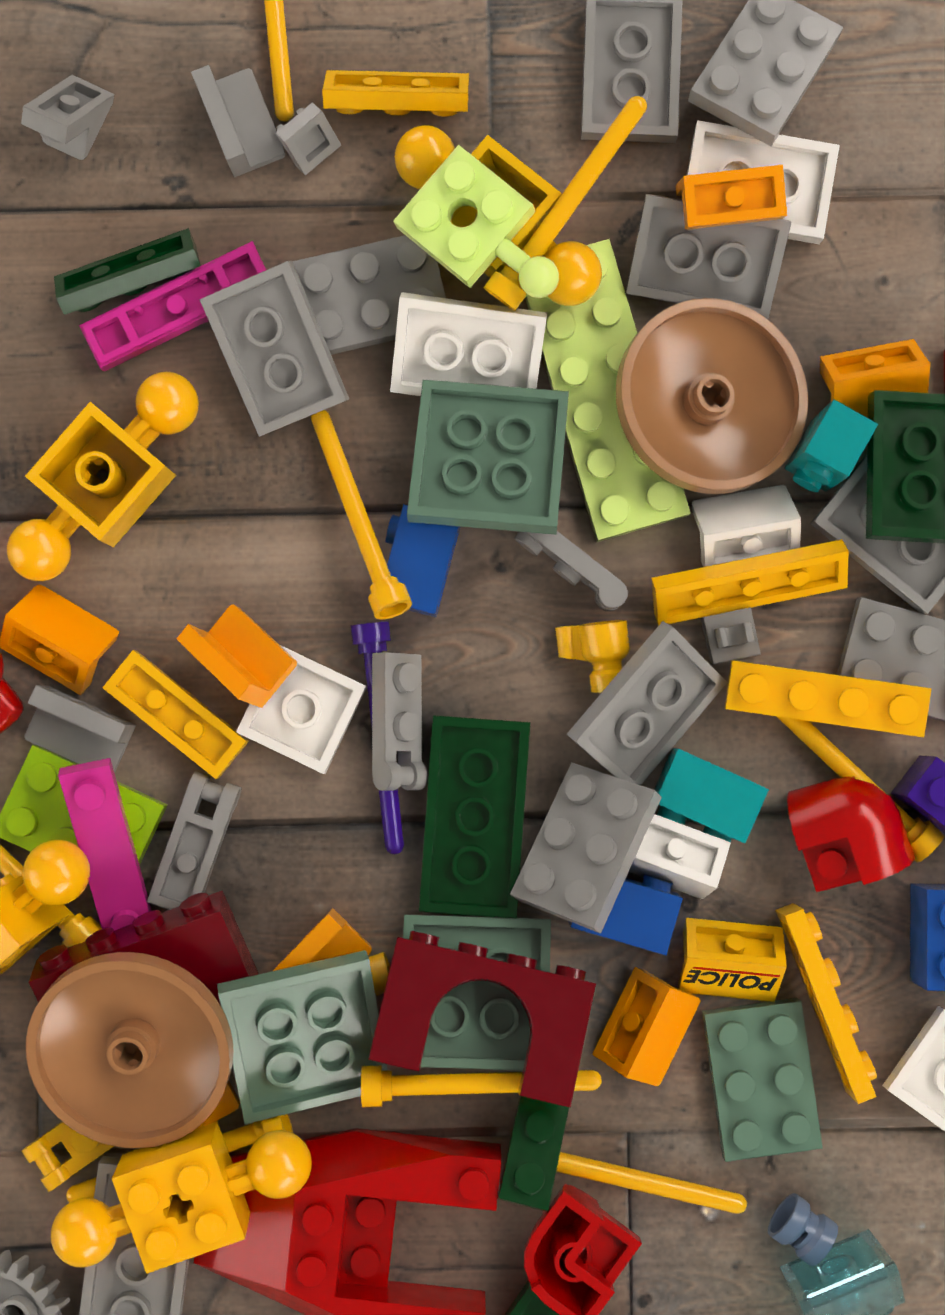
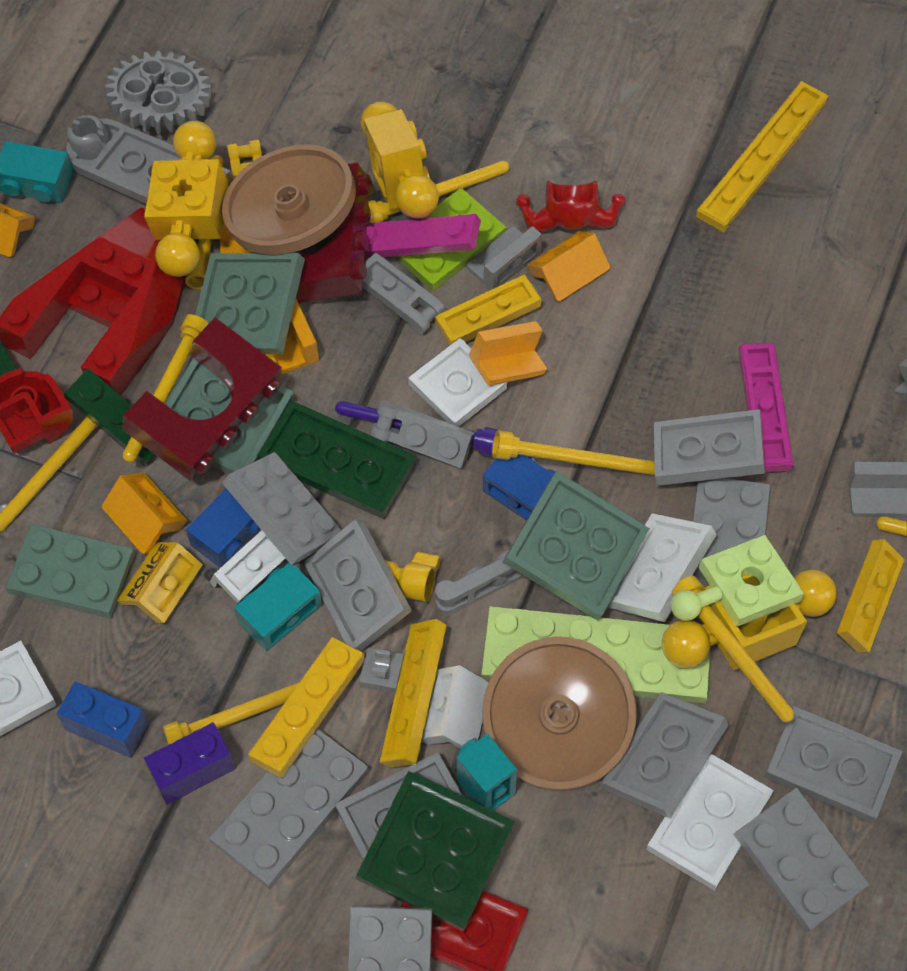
camera: 110 degrees right, 25 degrees down
(69, 469) = (664, 319): yellow brick -> none
(126, 272) = (801, 384): dark green plate -> none
(308, 138) = (855, 525): light grey tile -> none
(733, 197) = (699, 772): light orange panel -> none
(835, 1019) = (110, 626): yellow plate -> none
(848, 832) = (207, 682): red brick -> none
(883, 367) = (530, 843): light orange panel -> none

